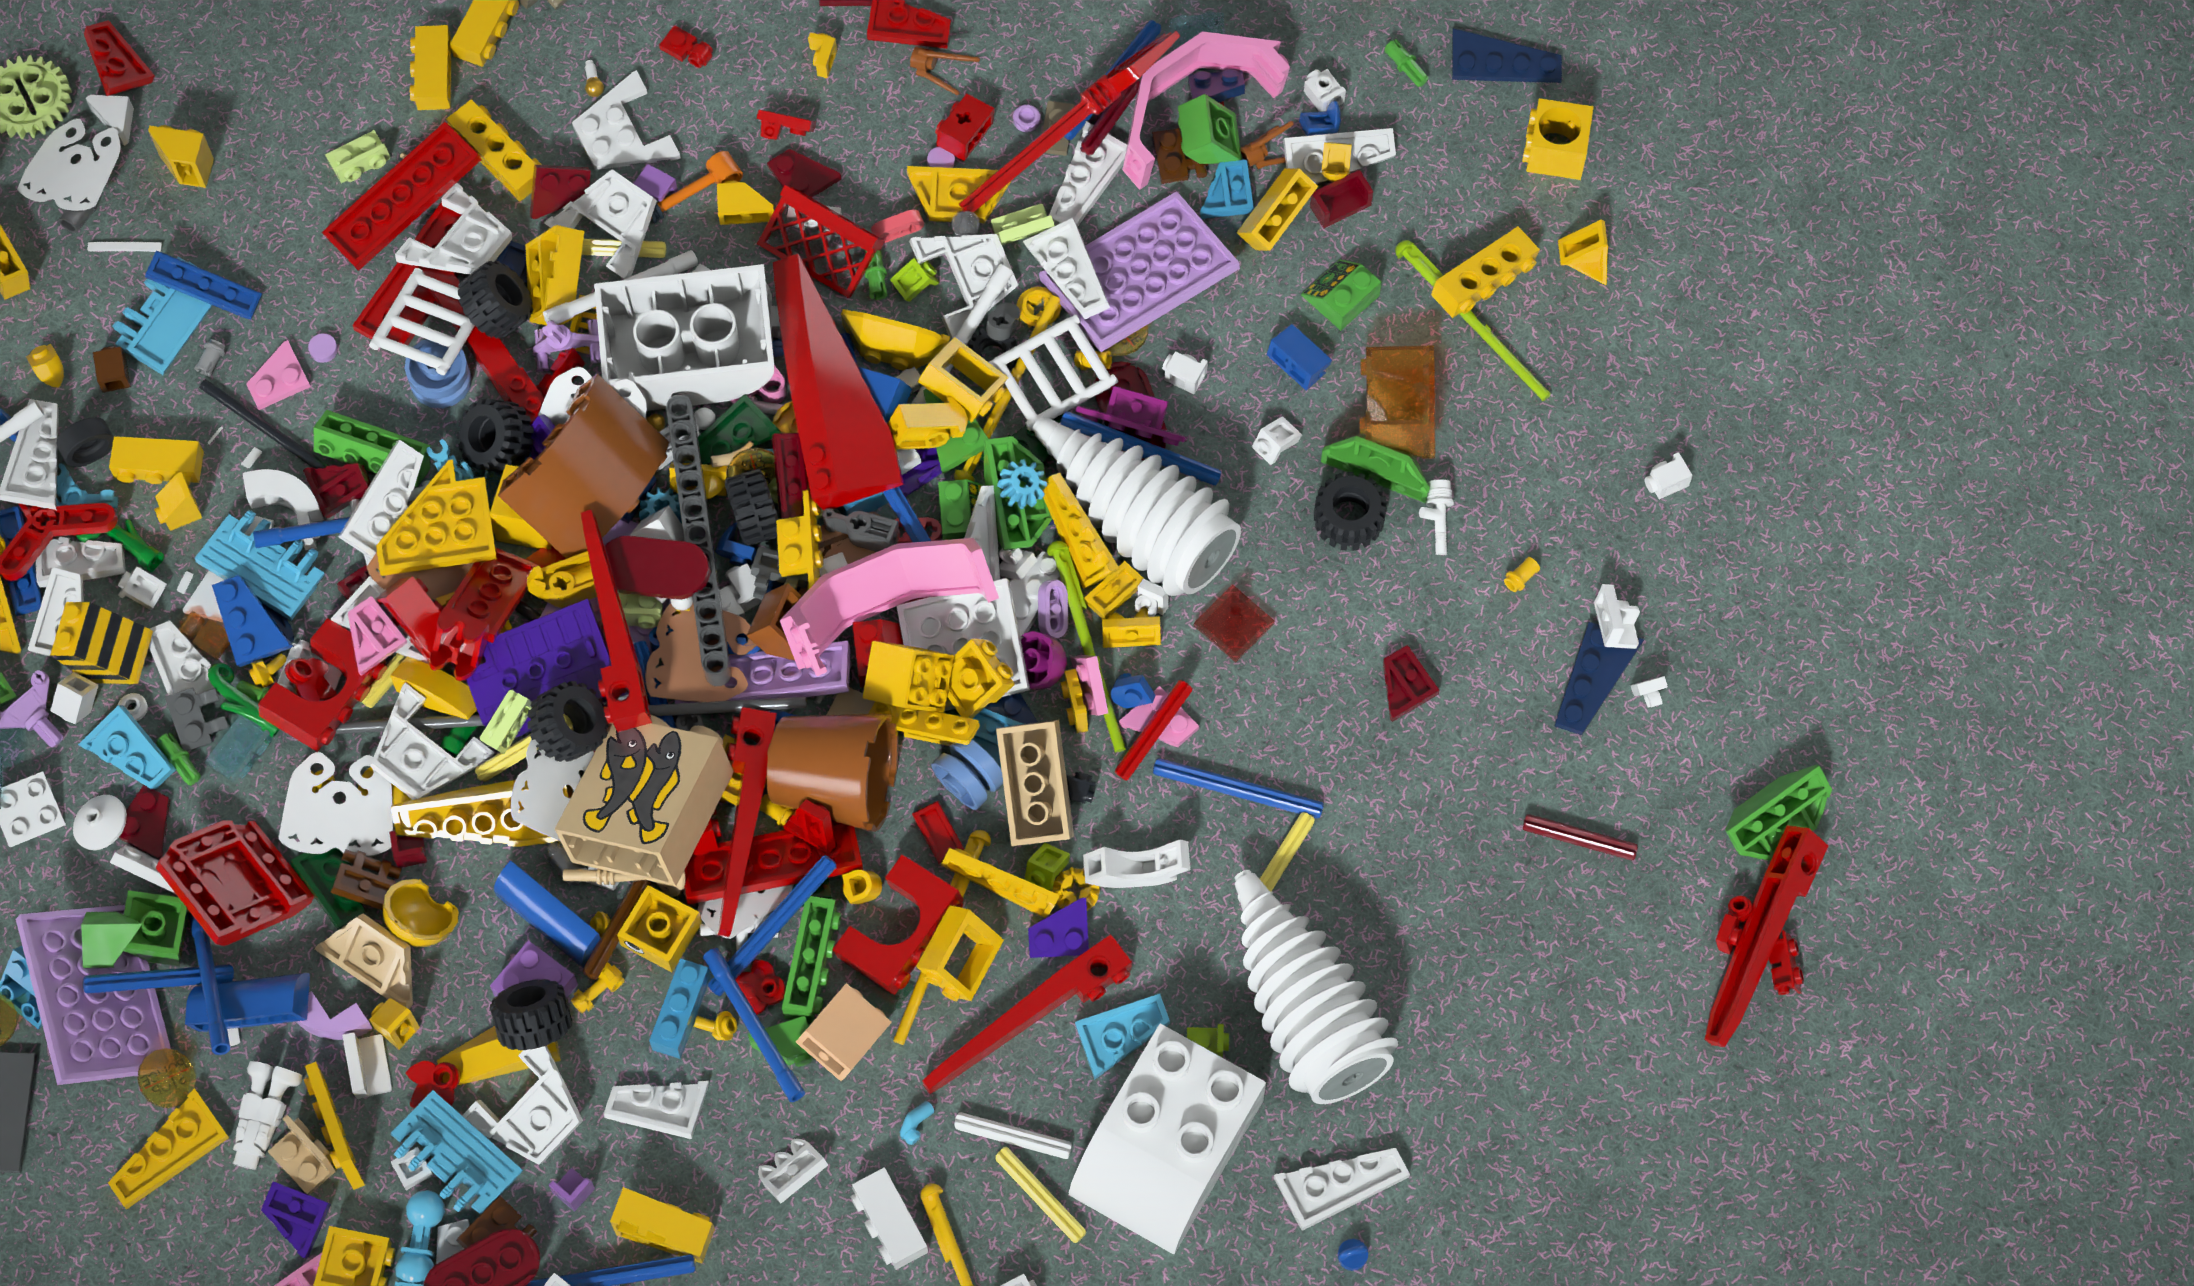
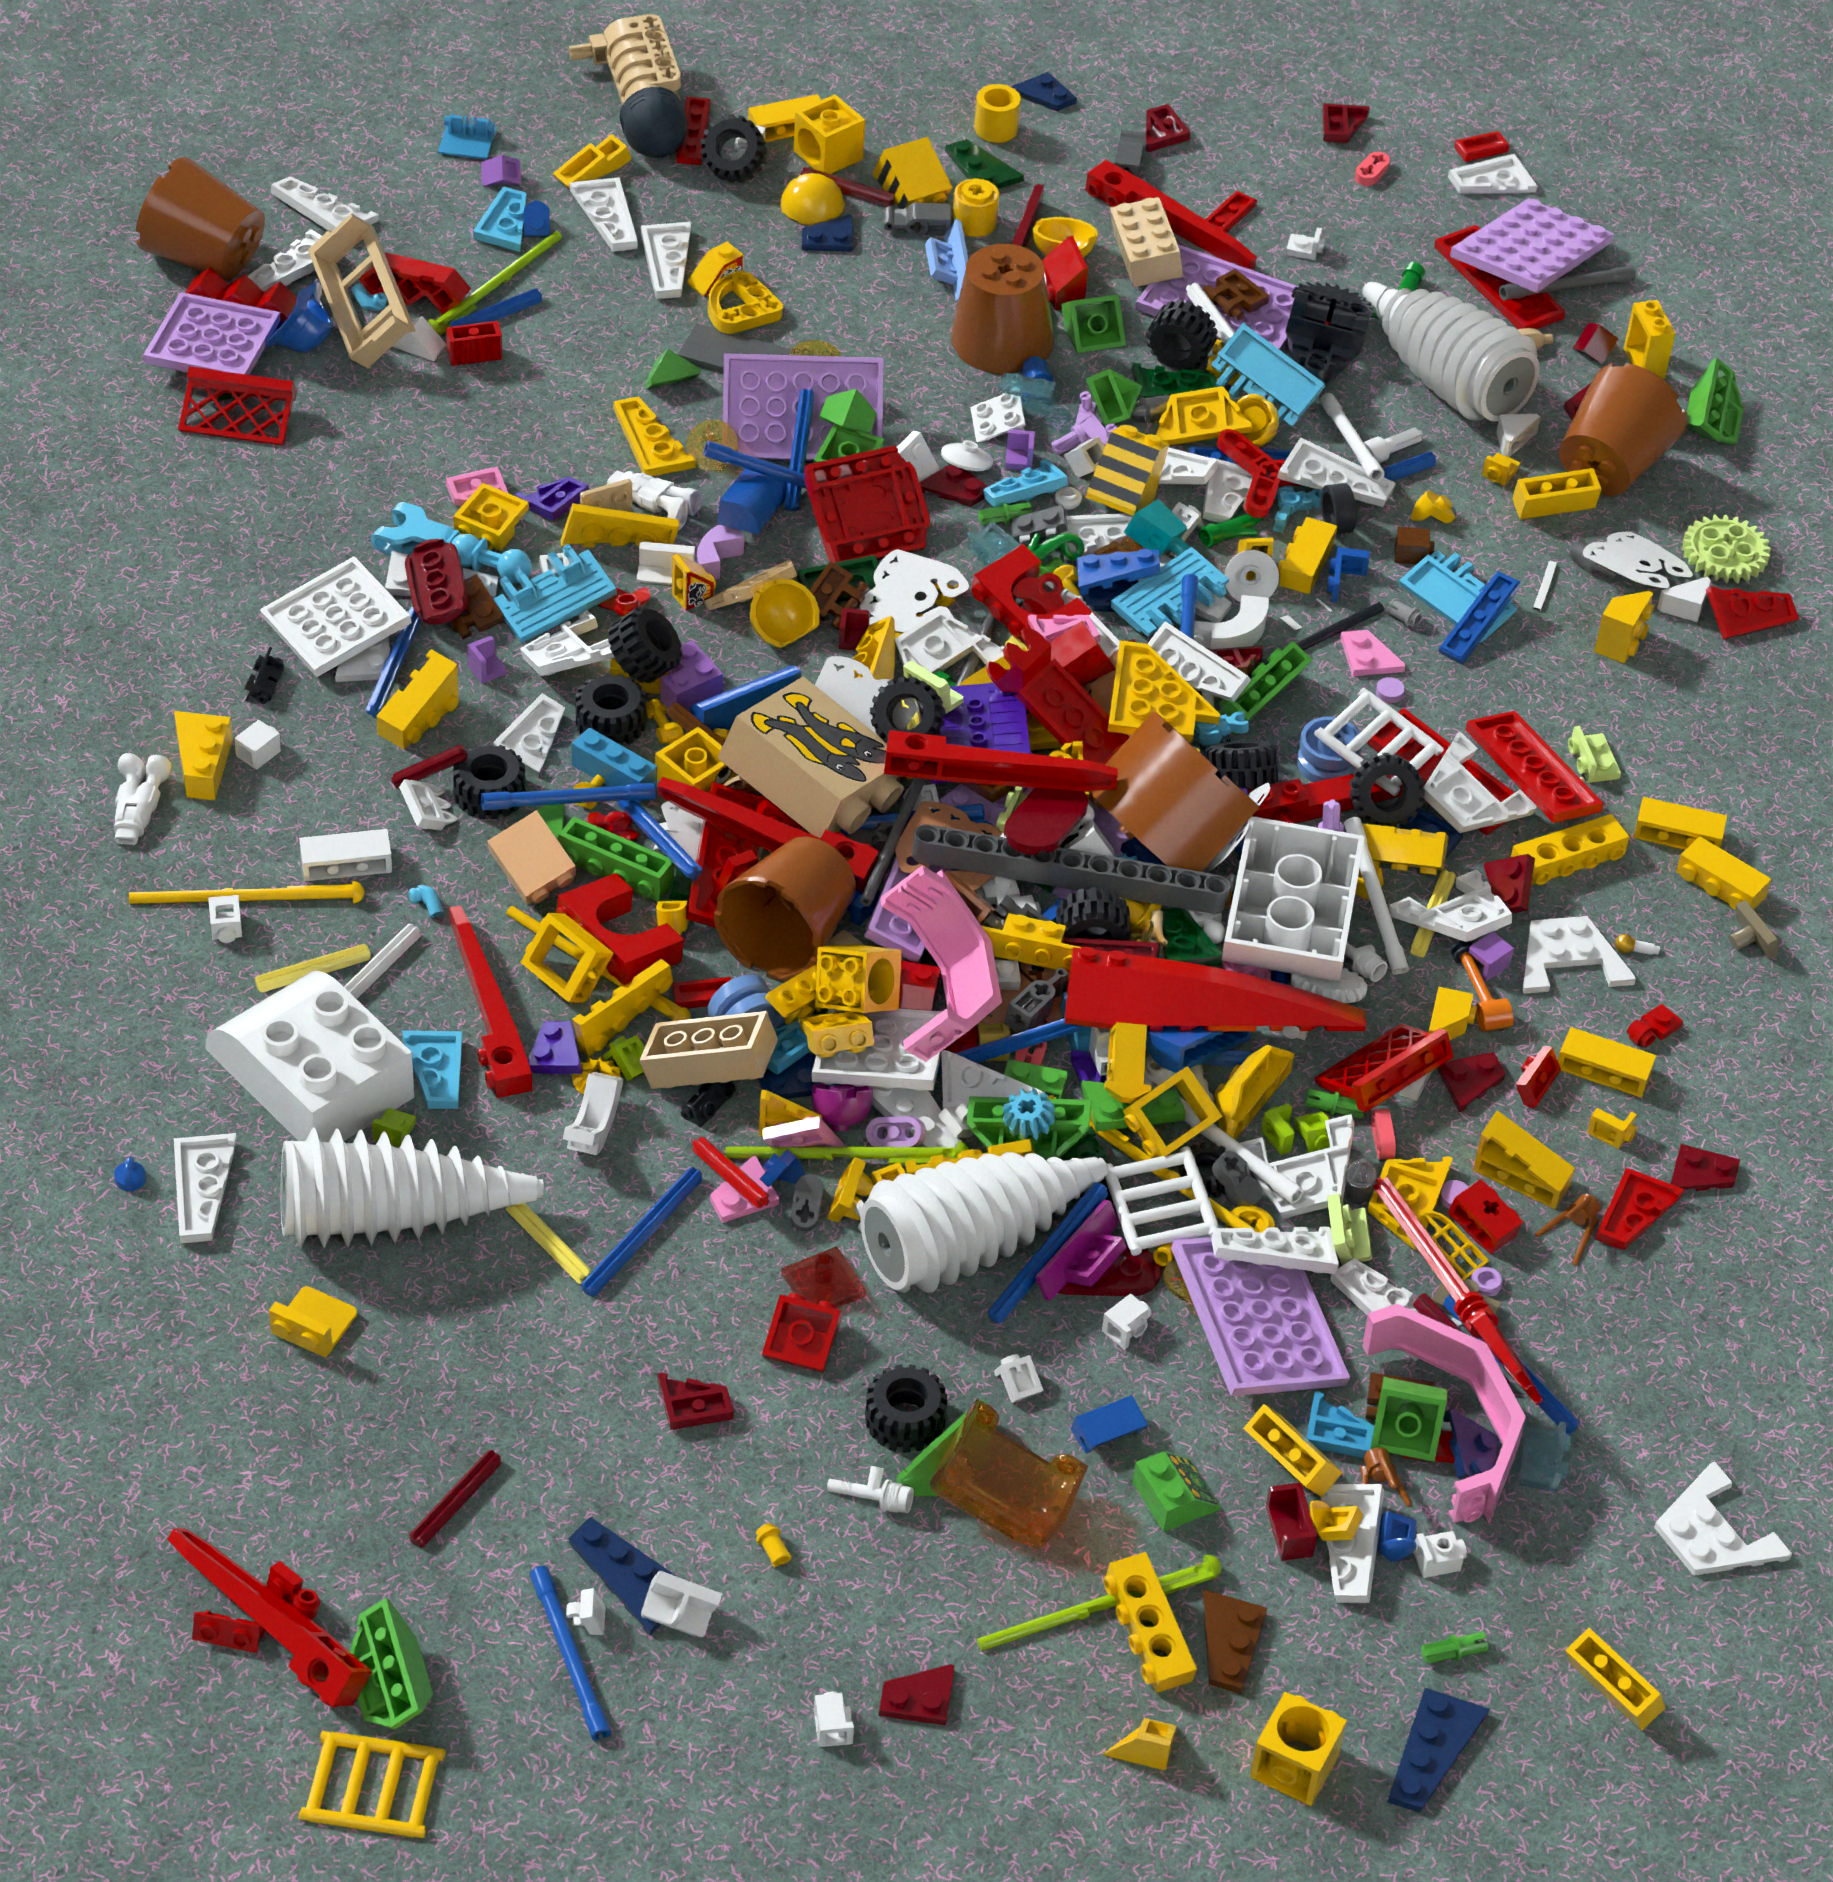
camera: 105 degrees right, 20 degrees down
(54, 1168) = (670, 369): none -> bright green slope
(79, 769) = (1019, 449): none -> medium lavender panel
(159, 429) = (1348, 562): none -> blue bracket
(171, 599) = (1158, 529): none -> teal torso
(212, 497) = (1265, 578): none -> white dish
(612, 1060) = (611, 708): none -> black tyre
(747, 72) = (1606, 1062): none -> yellow brick
(749, 1141) = (487, 764): none -> black tyre
(753, 1176) = (431, 765): none -> dark red axle
(896, 110) = (1522, 1162): none -> yellow wedge
(926, 308) = (1277, 1128): none -> lime bracket
(1003, 143) = (1458, 1250): none -> yellow window
(1159, 660) = (806, 1217): none -> dark grey piece
(1301, 617) = (802, 1332): none -> red plate
(1451, 1022) = (312, 1320): none -> yellow bracket
(1459, 220) = (1231, 1638): none -> reddish brown wing
(1614, 425) = (918, 1696): none -> dark red wing
(1734, 658) = (592, 1711): none -> blue piece
(1901, 778) = (381, 1821): none -> yellow bar

